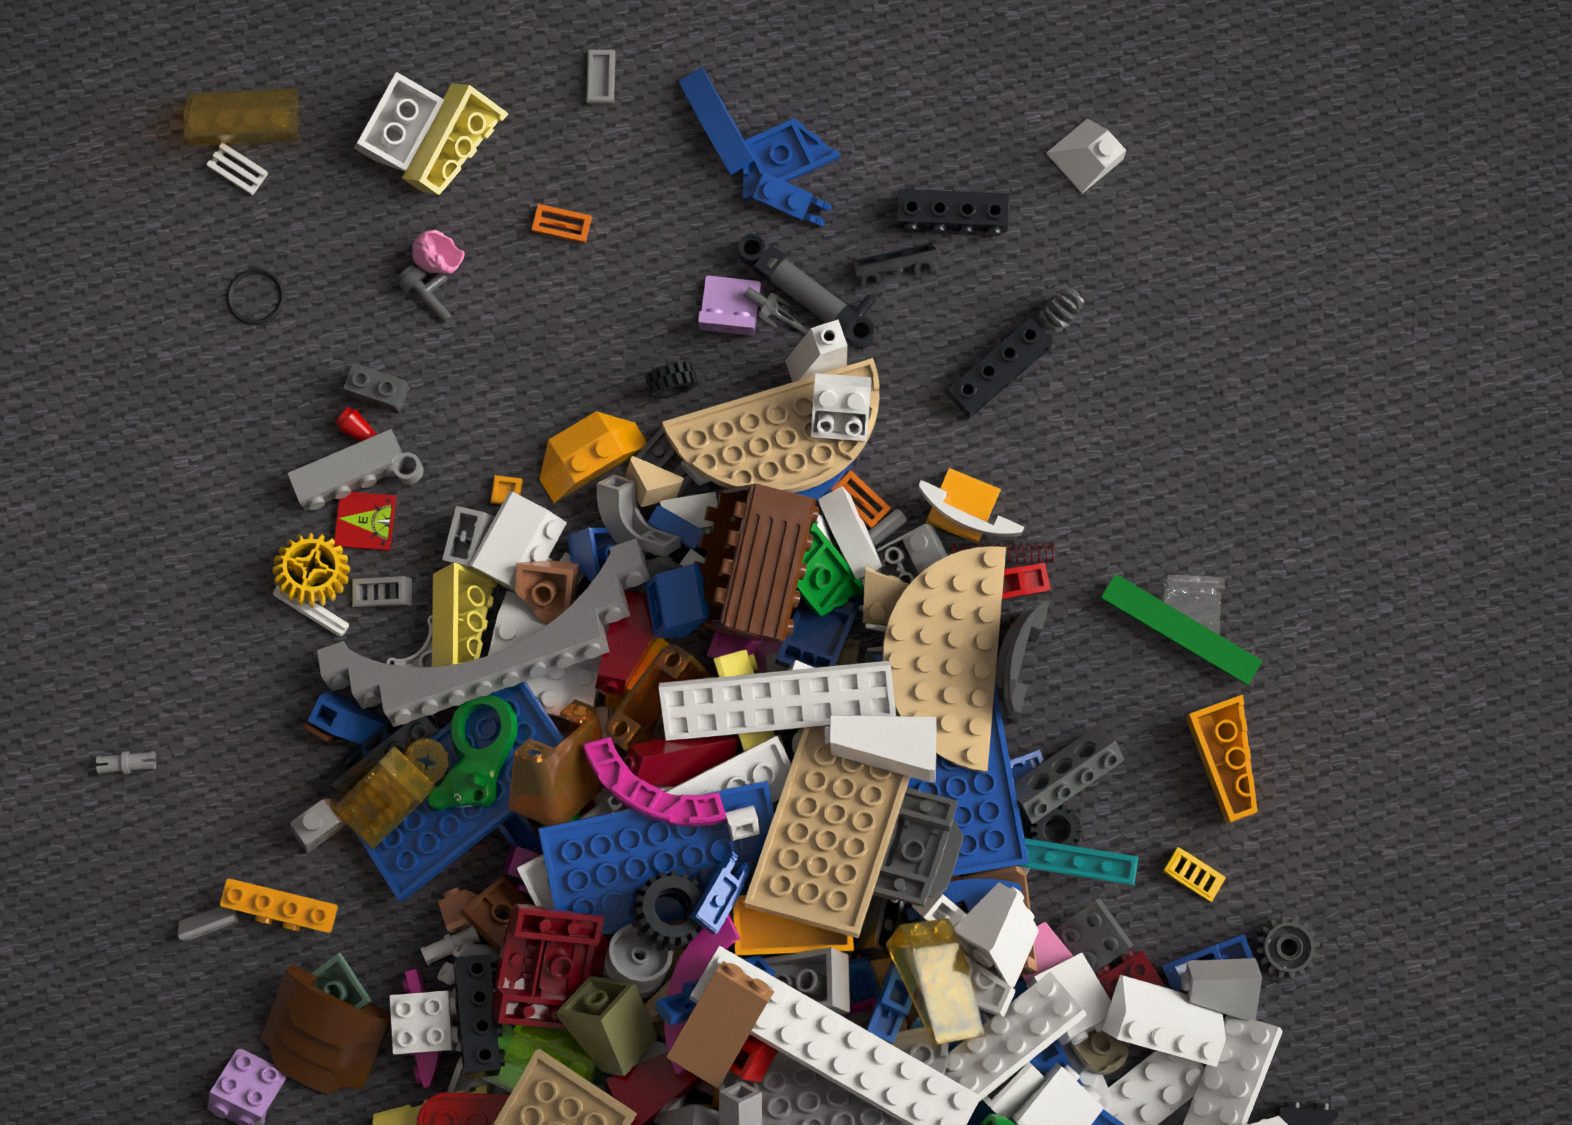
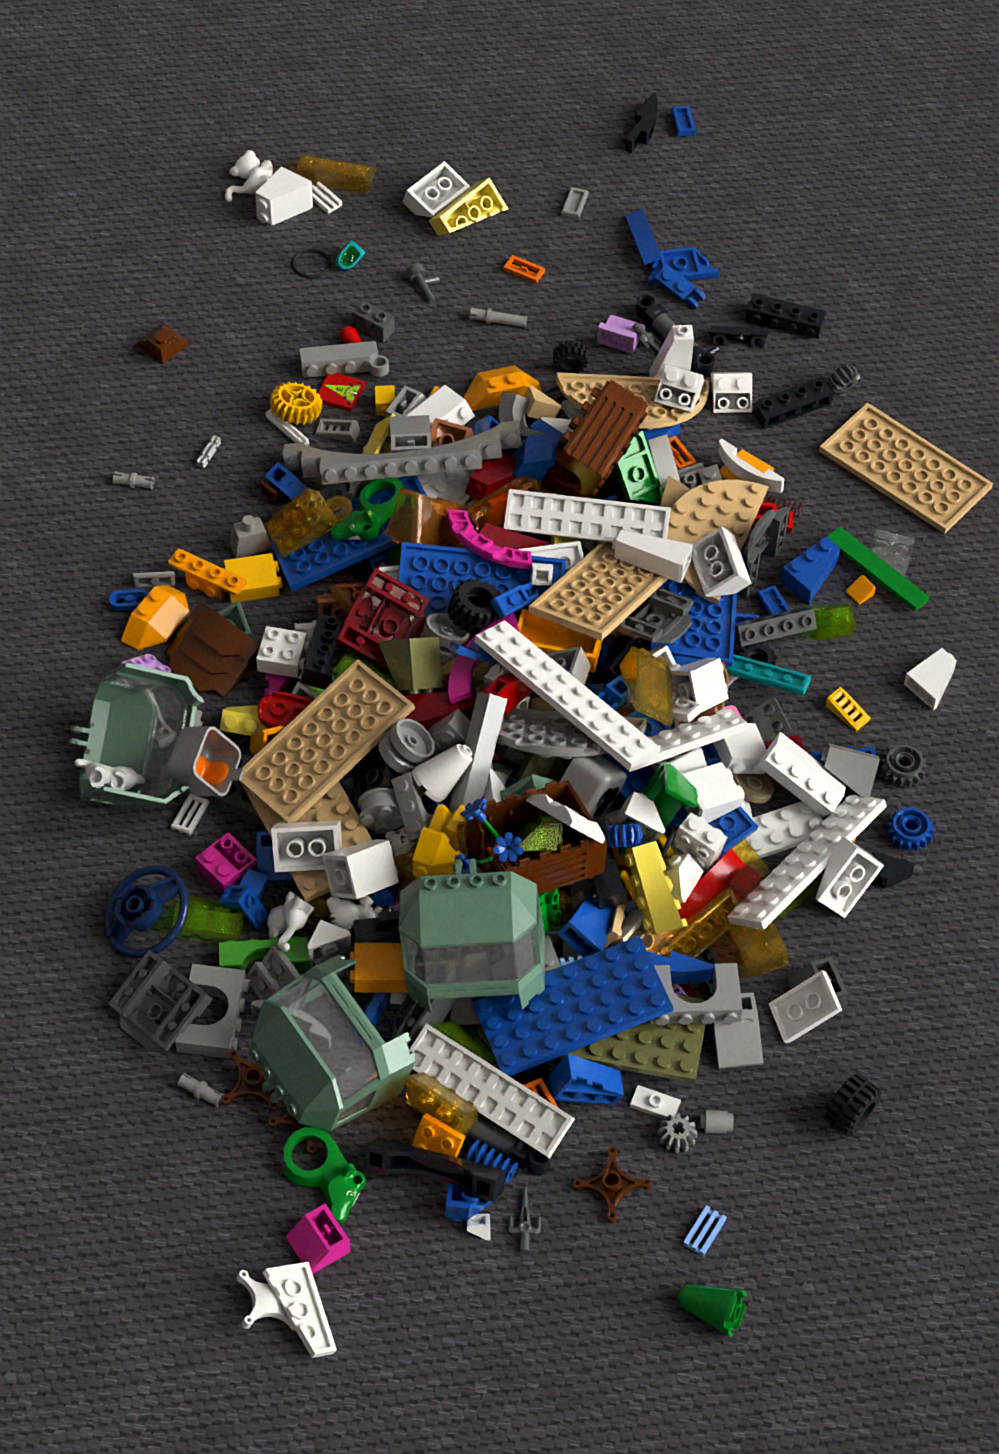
camera: 10 degrees right, 25 degrees down
(90, 504) = (163, 343): none -> reddish brown slope
(111, 149) = (249, 168): none -> white animal
(180, 198) = (283, 197): none -> white slope
(186, 969) = (128, 597): none -> blue plate
(213, 681) = (208, 451): none -> light grey axle
(233, 987) = (156, 618): none -> light orange wedge
(307, 274) = (349, 256): none -> rock
(344, 882) = (260, 576): none -> yellow brick
(433, 525) = (383, 398): none -> yellow brick
(436, 253) = (436, 262): bright pink hair -> none
(491, 608) = (410, 433): none -> light grey slope
(549, 326) = (497, 317): none -> light grey pin
(720, 1023) = (489, 657): medium nougat panel -> none
(910, 370) = (731, 392): none -> white slope
(976, 722) = (720, 564): none -> white slope
(1054, 724) = (772, 600): none -> blue plate
(1087, 154) = (885, 309): white slope -> none
(1093, 658) = (810, 569): none -> blue wedge
(1136, 728) = (833, 621): none -> clear neon green slope
(1165, 668) = (861, 590): none -> light orange slope
(1180, 436) = (906, 467): none -> tan plate
(1225, 753) = (888, 640): light orange wedge -> none
(1295, 791) = (931, 677): none -> white slope
(1334, 1047) = (912, 819): none -> blue gear

